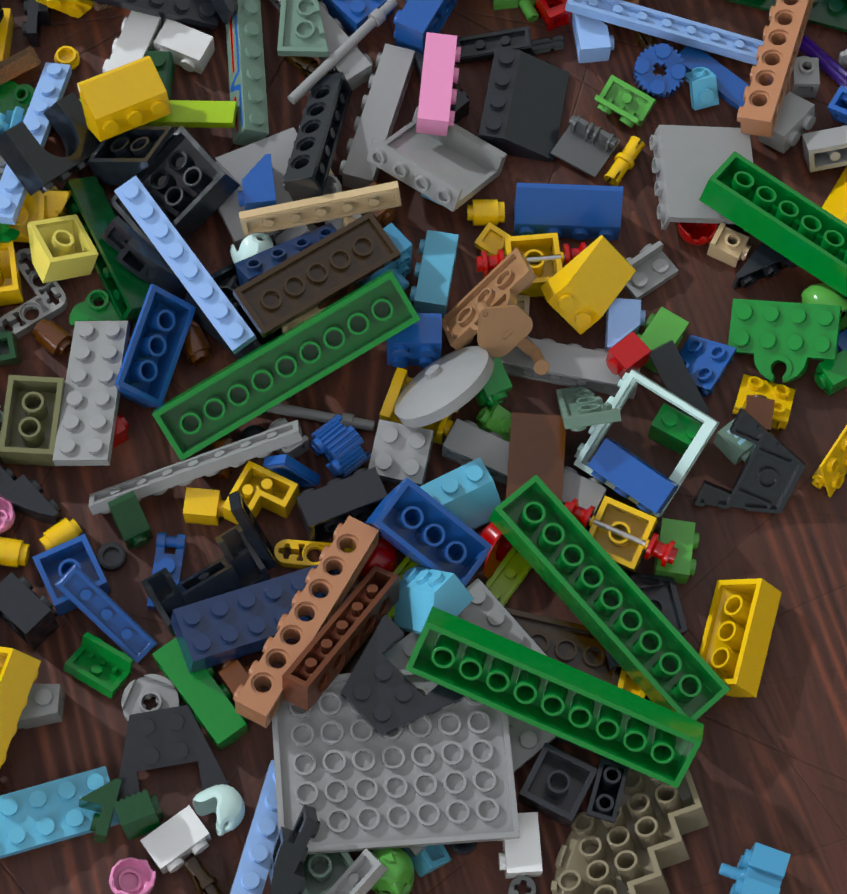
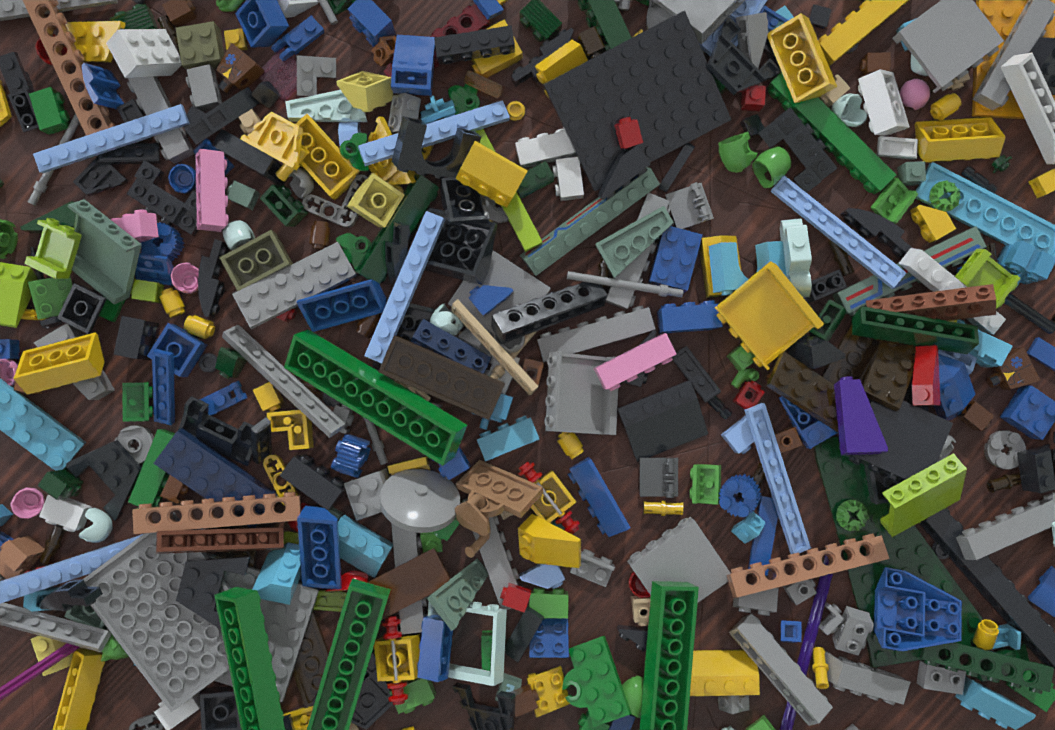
camera: 60 degrees right, 20 degrees up
(102, 801) = (53, 461): dark green slope -> none
(292, 470) = (317, 438): blue tile -> none
(491, 239) = (553, 459): yellow plate -> none

